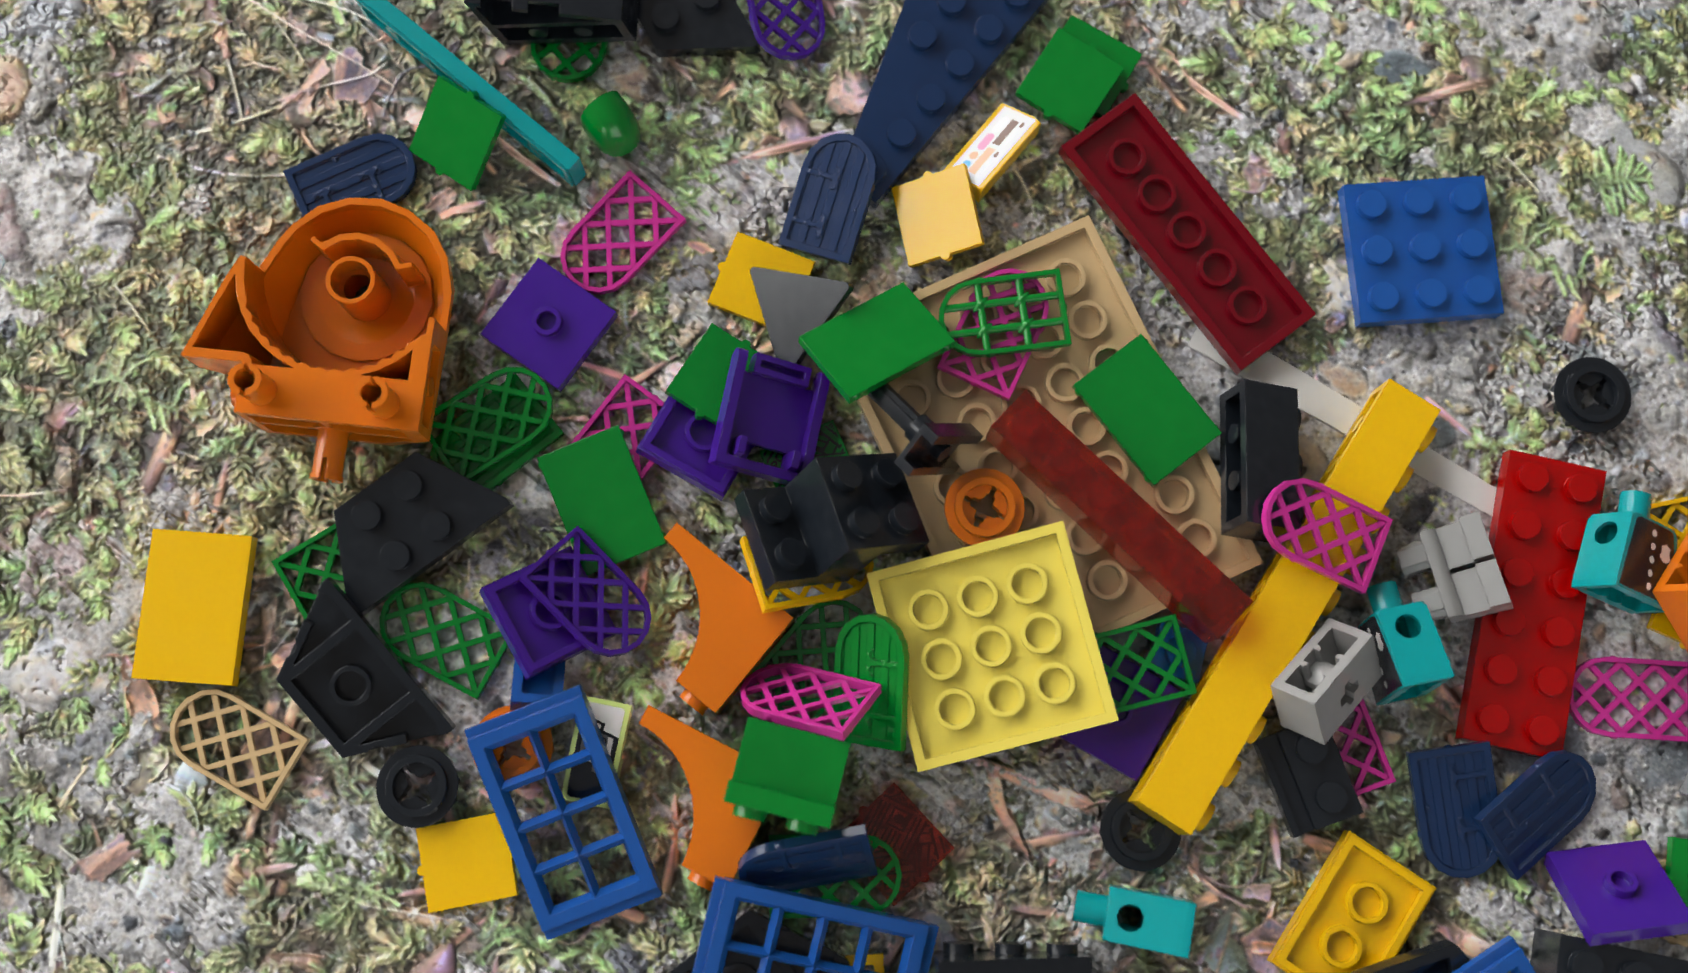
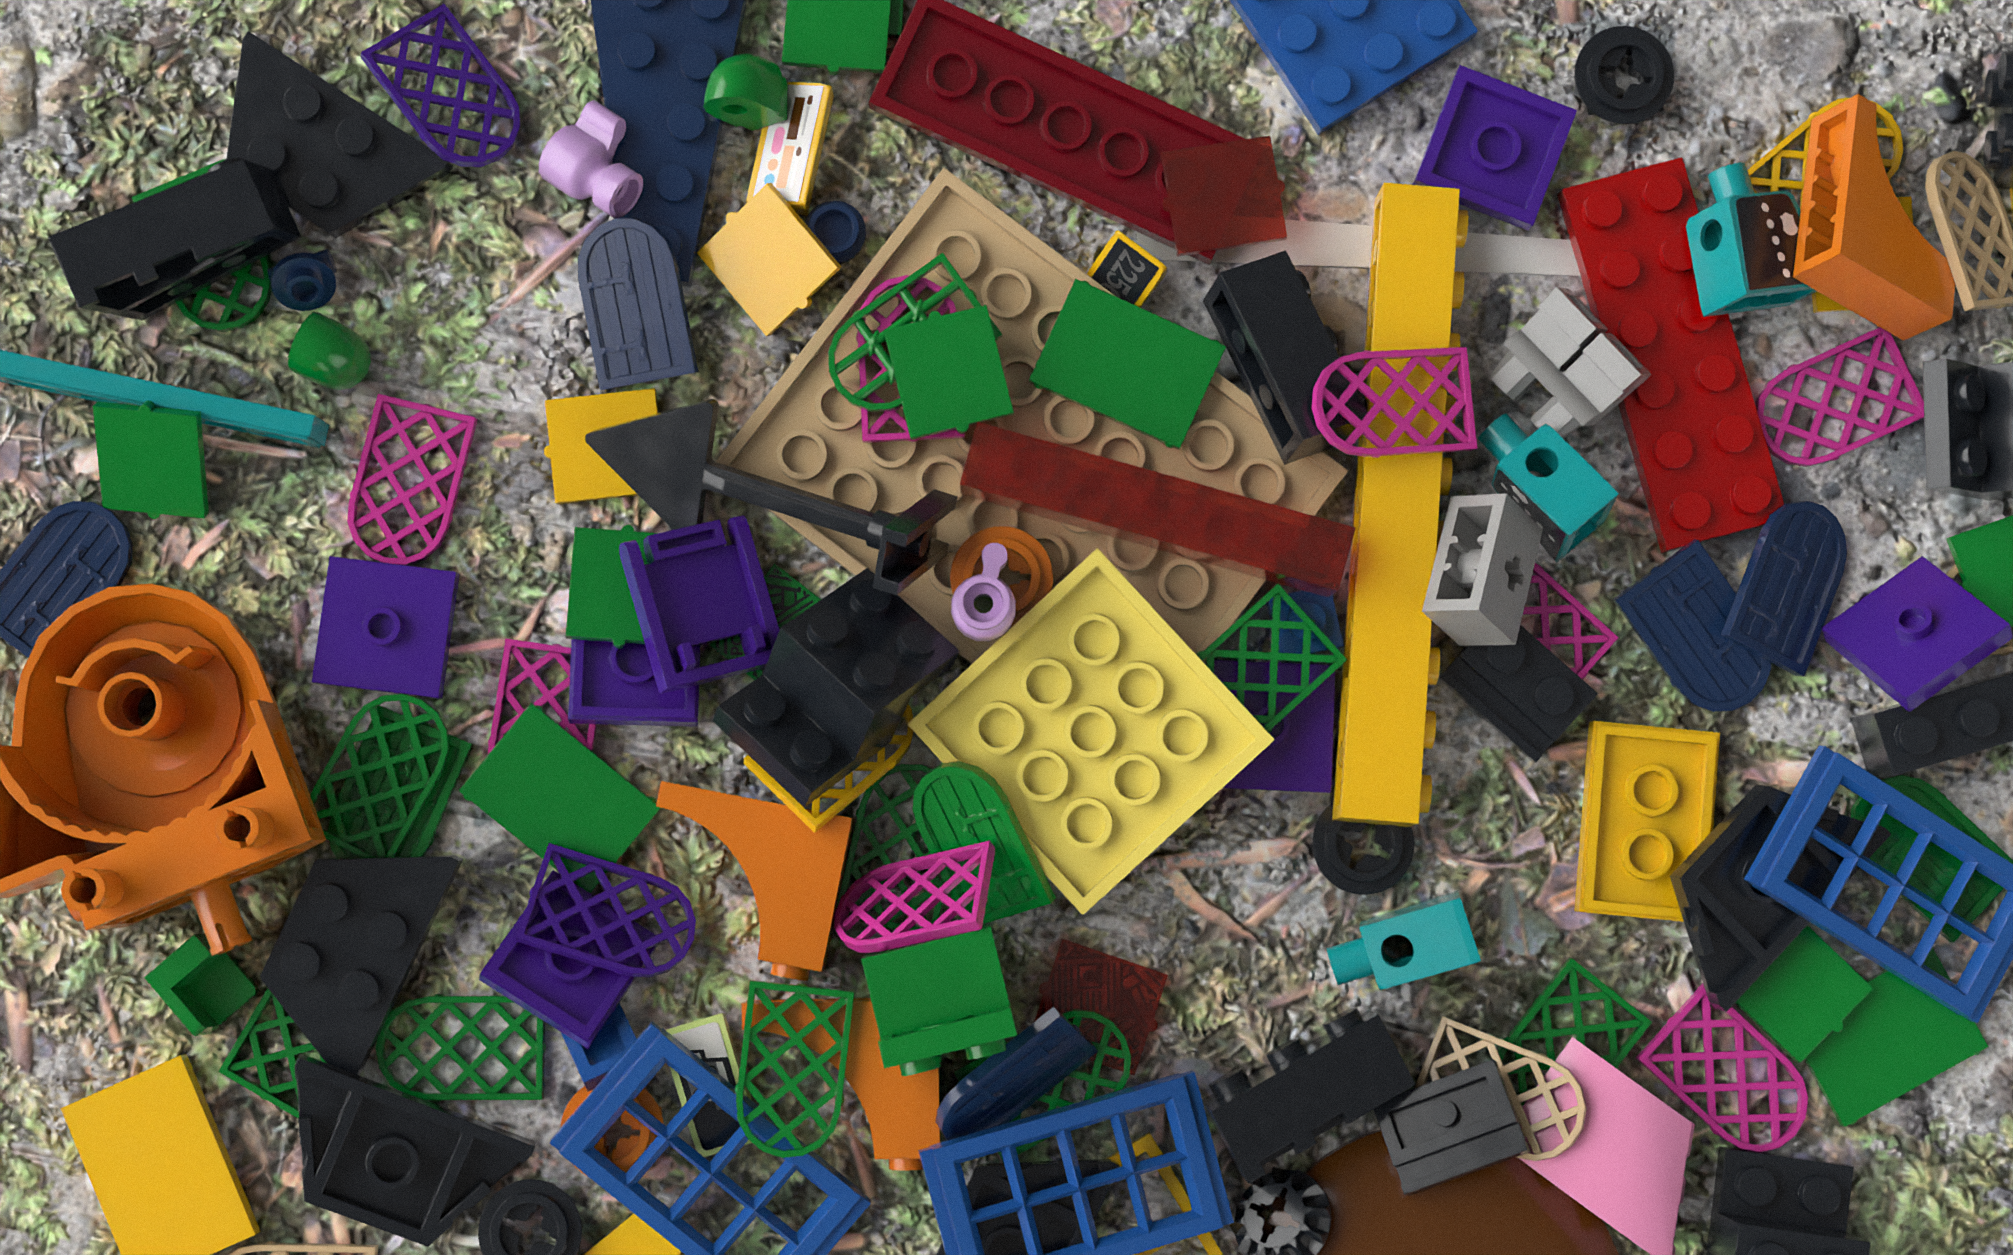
camera: 30 degrees left, 5 degrees up
(291, 497) = (201, 986): none -> green panel
(621, 759) = (744, 1079): none -> green window
(622, 70) = (304, 280): none -> dark blue plate
(847, 88) = (581, 162): none -> lavender piece
(876, 342) = (777, 452): green piece -> none
(965, 515) = (984, 603): none -> lavender piece
(981, 99) = (747, 92): none -> green piece
(996, 220) = (838, 228): none -> dark blue plate
(1021, 349) = (948, 372): none -> green piece
(1180, 347) = (1127, 270): none -> slope
(1271, 331) = (1223, 196): none -> clear red piece
(1479, 397) = (1495, 146): none -> dark purple plate

